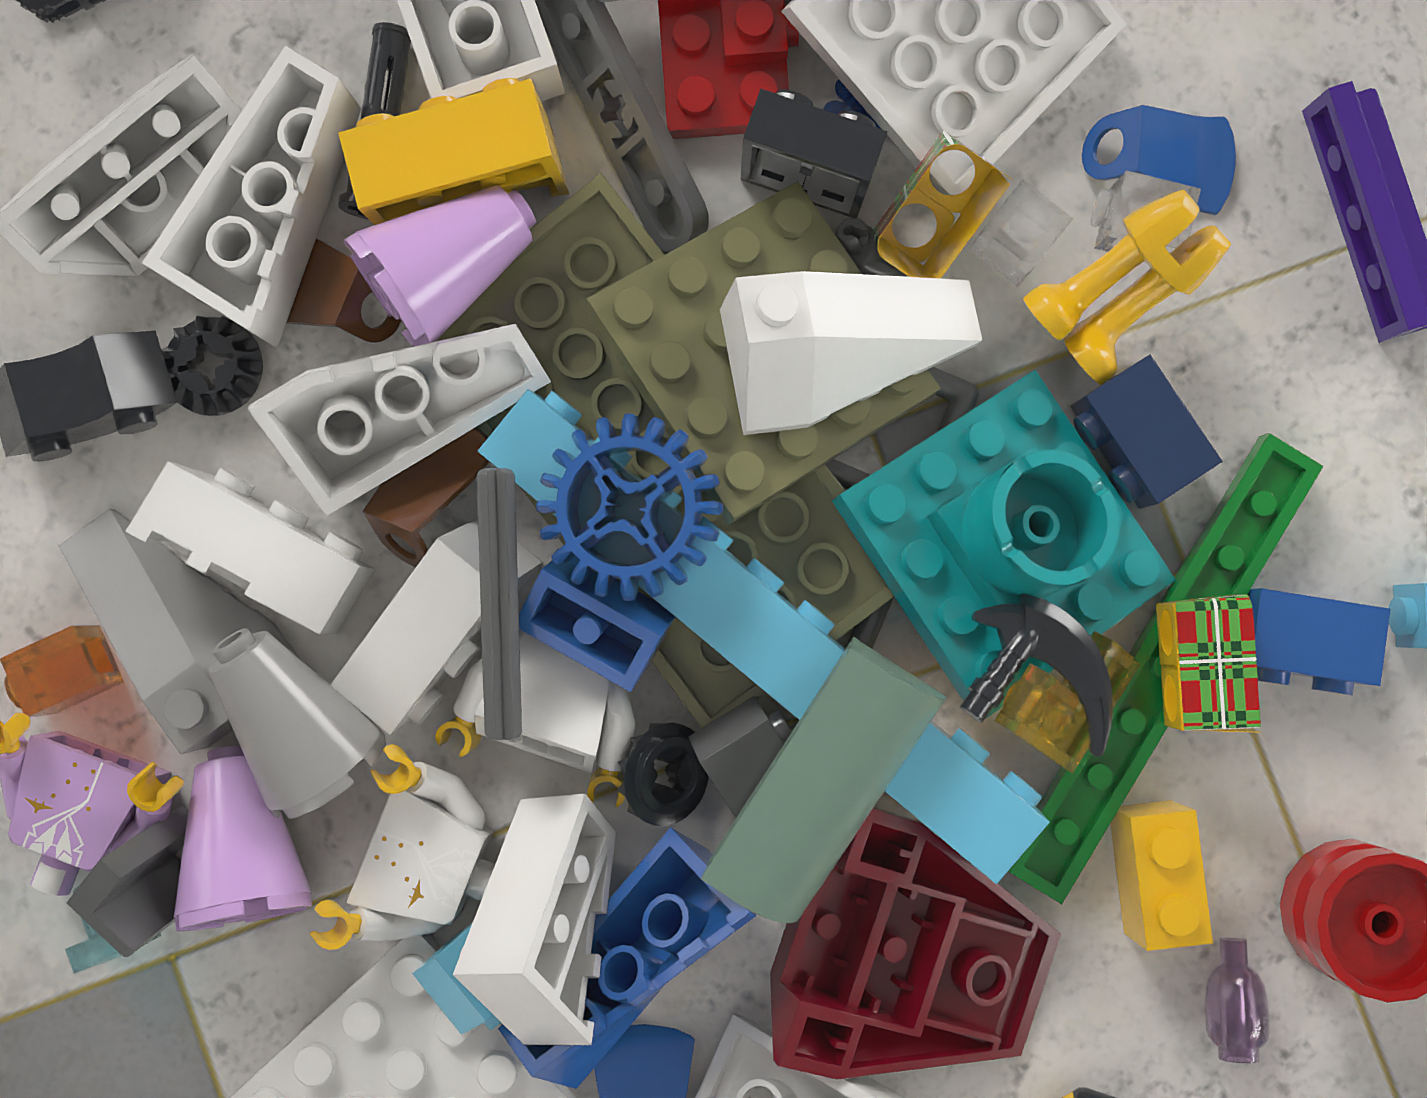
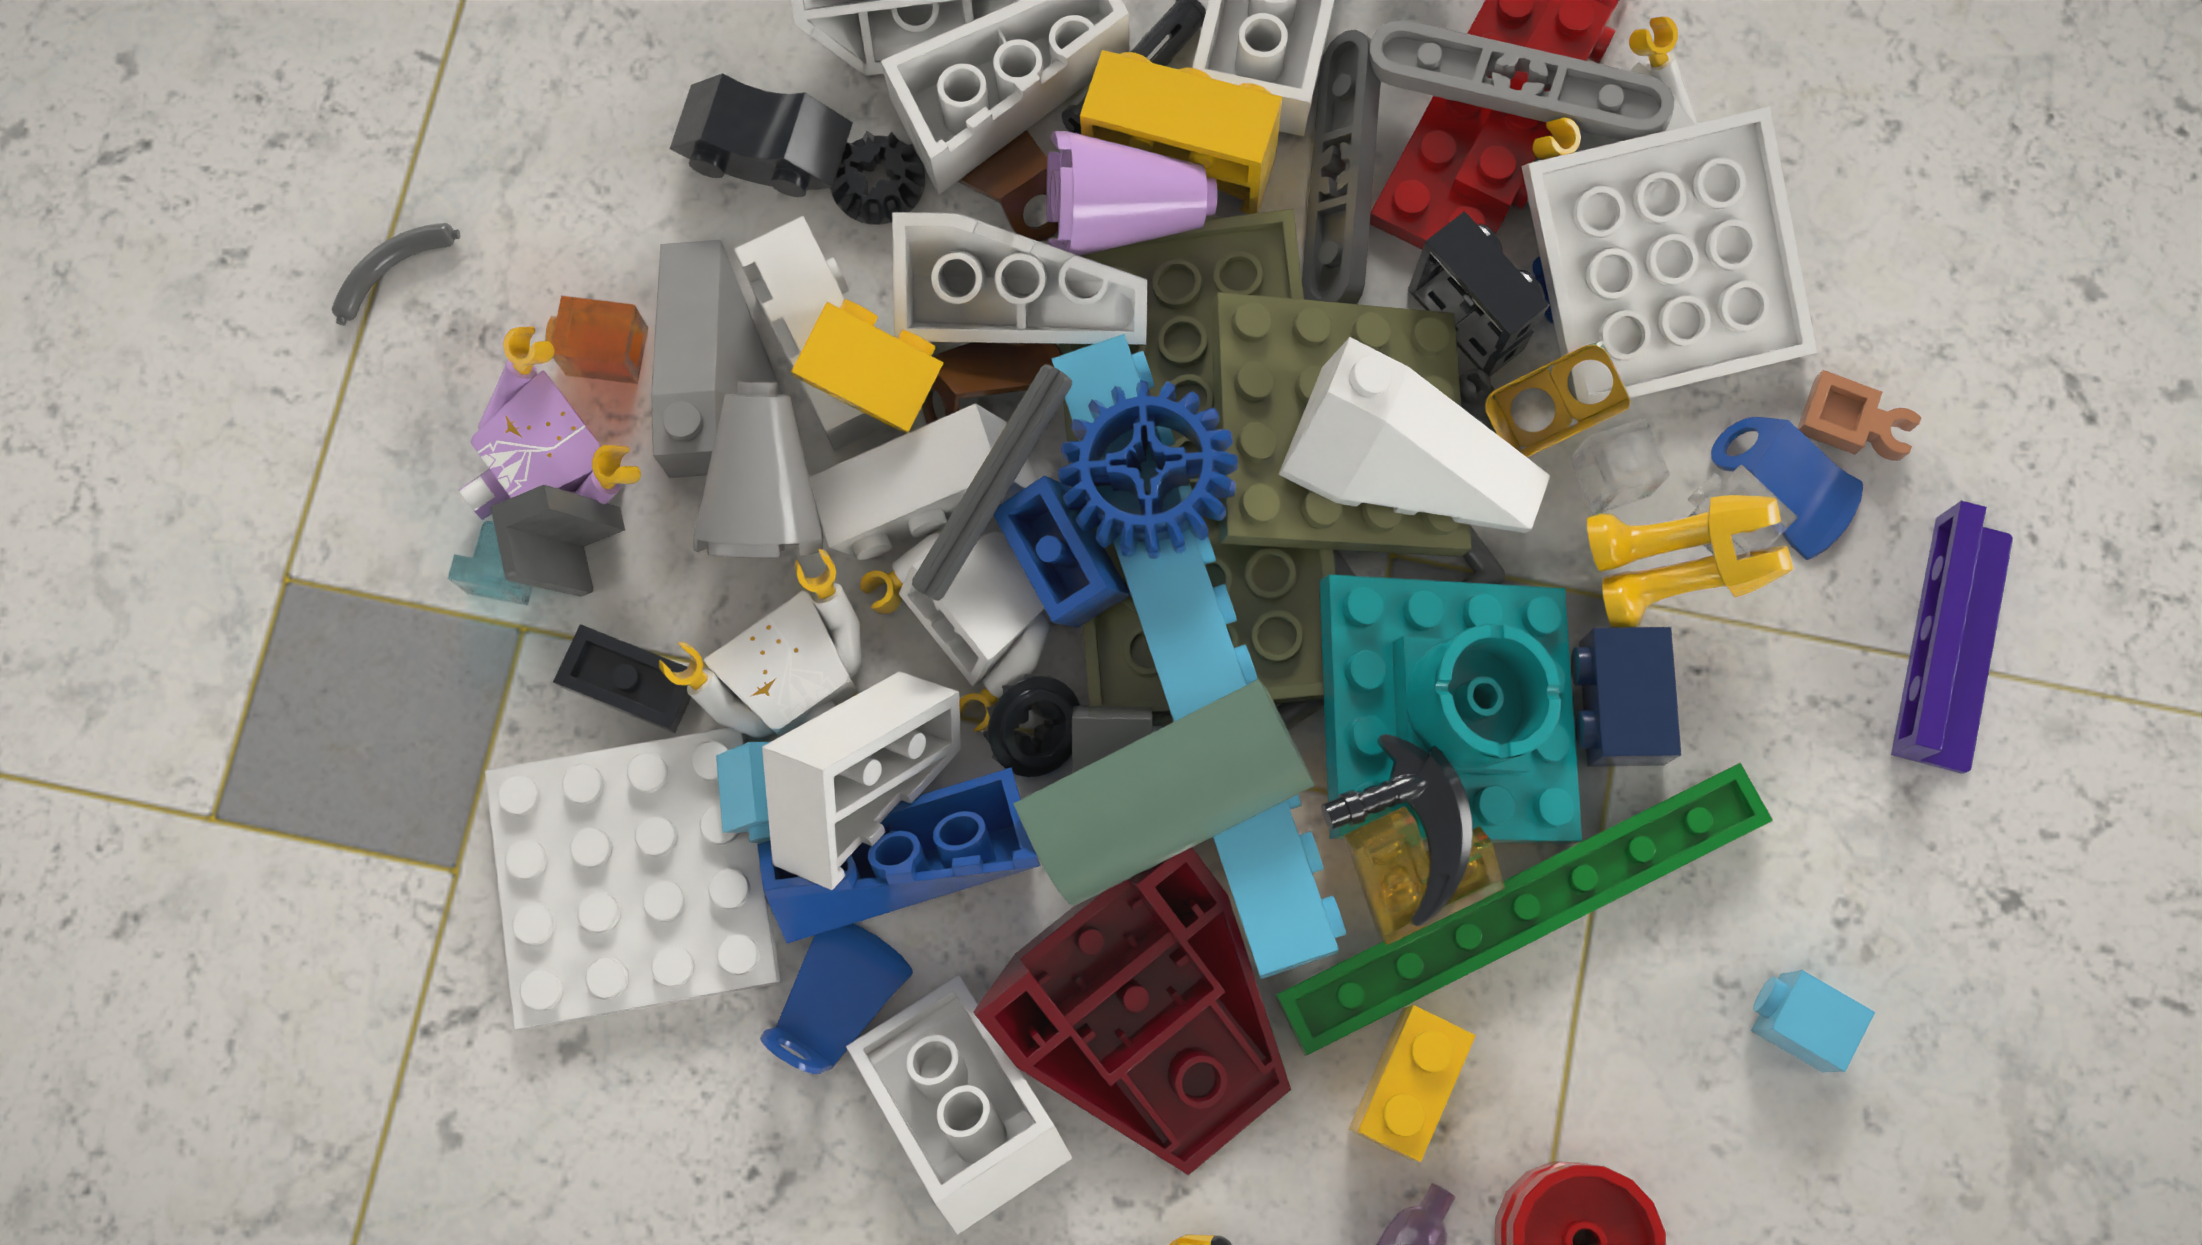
camera: 35 degrees right, 10 degrees down
(235, 852) = (639, 567): lavender cone -> none
(283, 953) = (623, 678): none -> black plate
(317, 562) = (867, 365): none -> yellow brick
(1183, 66) = (1849, 415): none -> nougat plate
(1209, 664) = (1563, 915): piece -> none
(1318, 639) = (1670, 963): blue brick -> none

